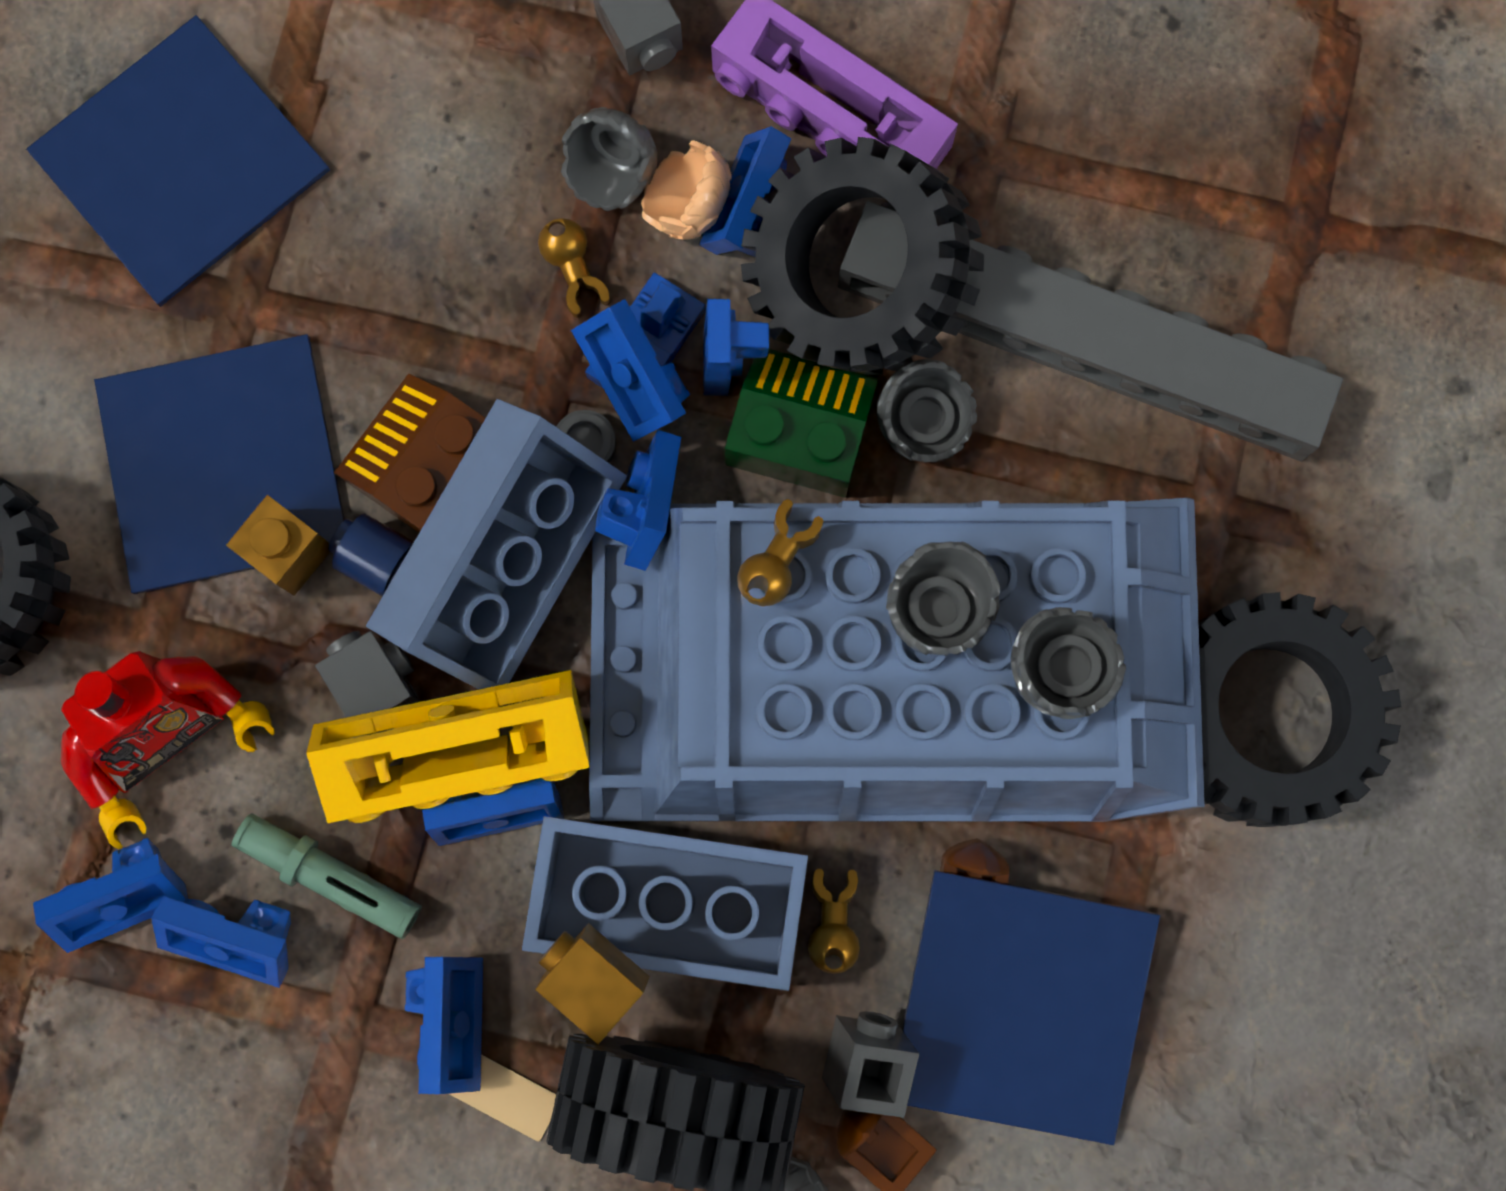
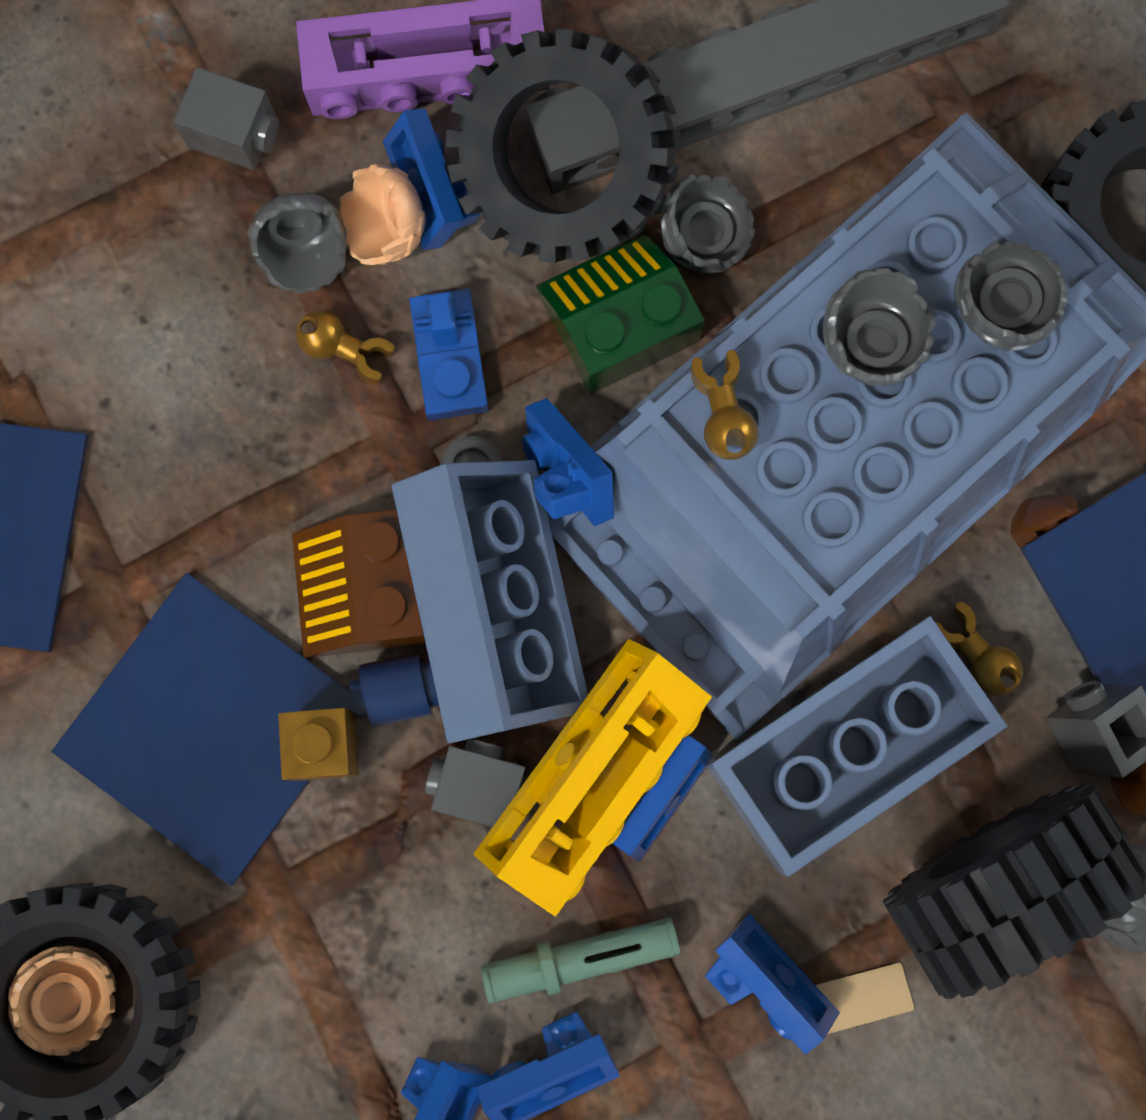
camera: 40 degrees left, 0 degrees up
(140, 719) = (333, 972): red torso -> none
(590, 981) = (867, 850): pearl gold brick -> none
(627, 369) = (465, 381): blue hinge -> none
(727, 344) = (516, 300): blue hinge -> none

